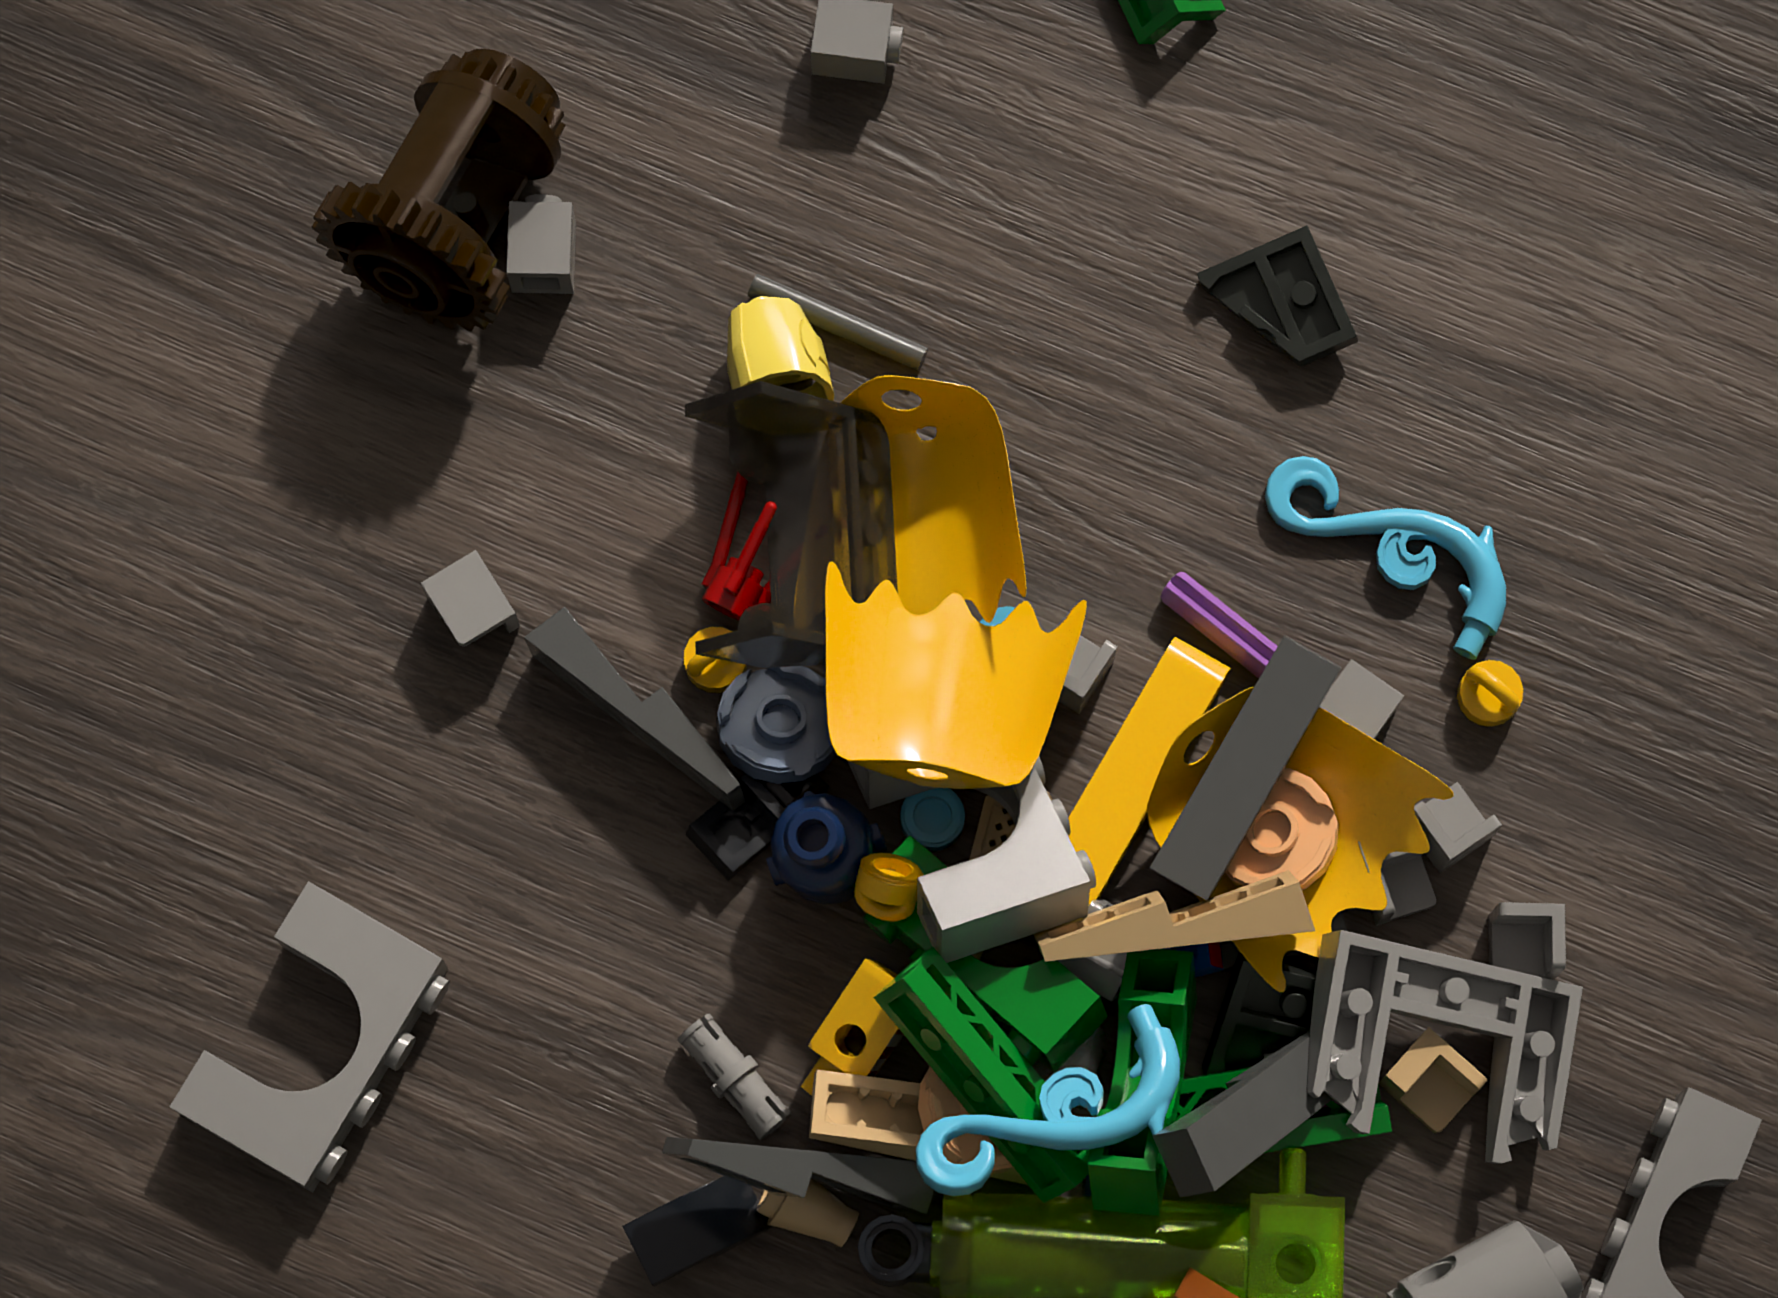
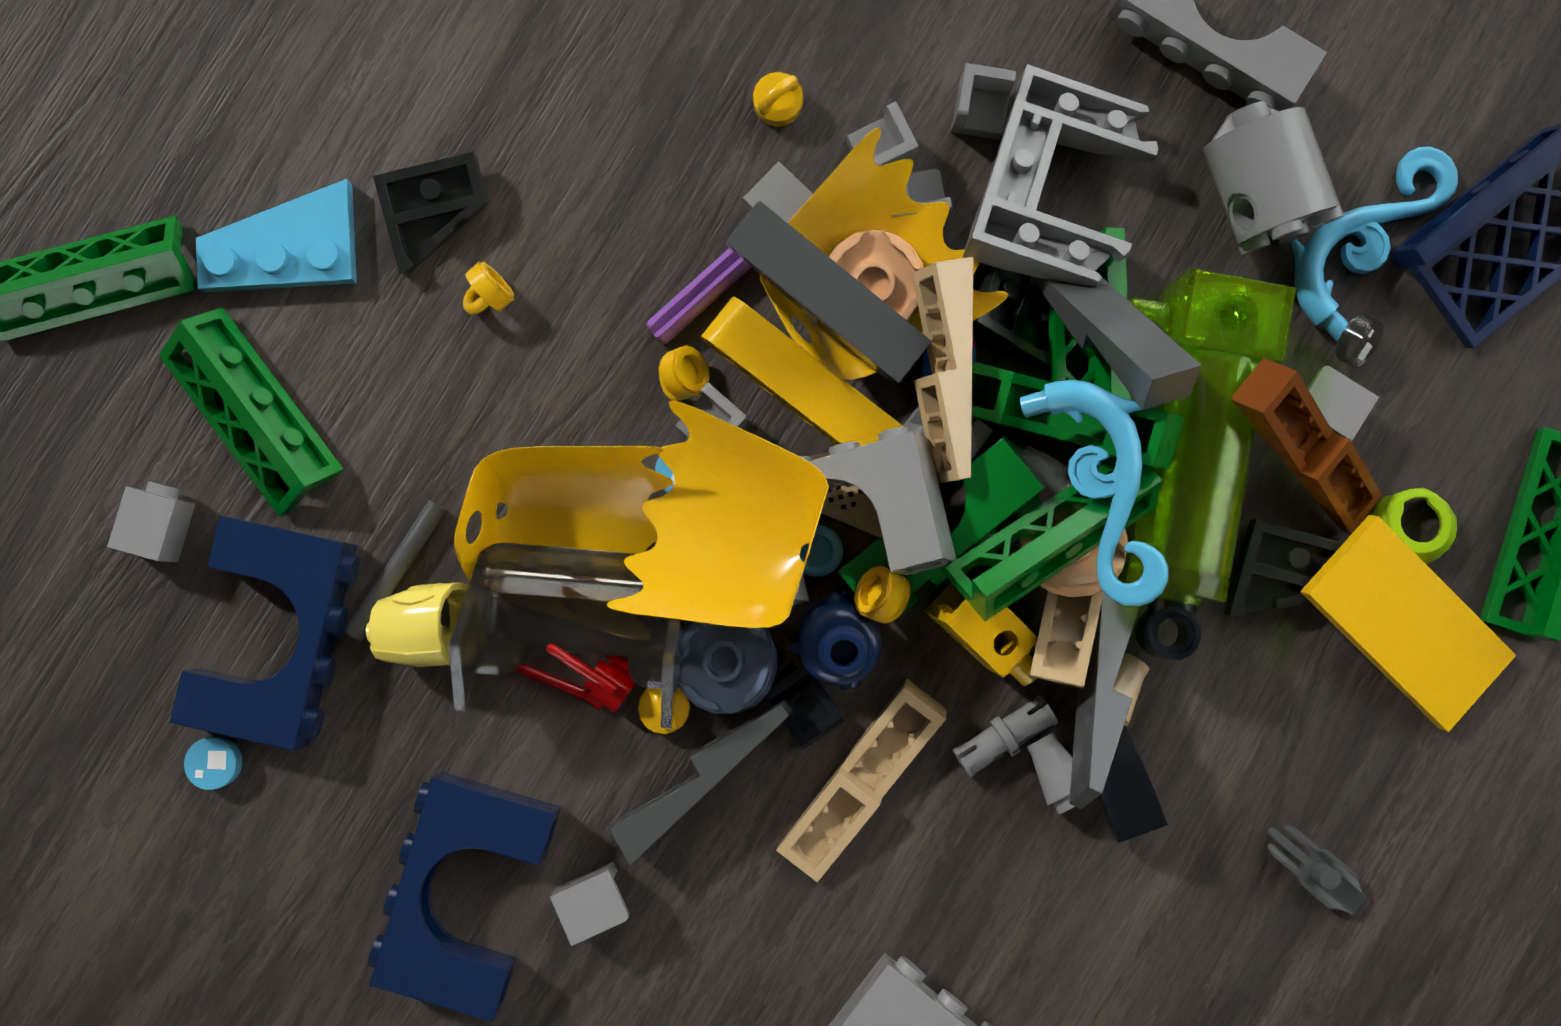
camera: 85 degrees left, 10 degrees up
(393, 406) = (416, 951): none -> dark blue arch
(435, 255) = (256, 944): dark brown piece -> none
(541, 245) = (292, 807): light grey brick -> none
(584, 150) = (213, 762): none -> medium azure tile
(659, 910) = (862, 780): none -> tan slope
(678, 1174) = (1053, 771): none -> light grey cone
(813, 232) = (286, 705): none -> dark blue arch
(1011, 130) = (251, 403): none -> green fence
(1129, 623) = (683, 373): none -> yellow tile
(1193, 378) = (489, 286): none -> yellow tile
(1208, 139) = (285, 246): none -> medium azure wing
(1400, 568) = (664, 90): medium azure plant -> none
(1433, 1081) = (1078, 192): tan panel -> none

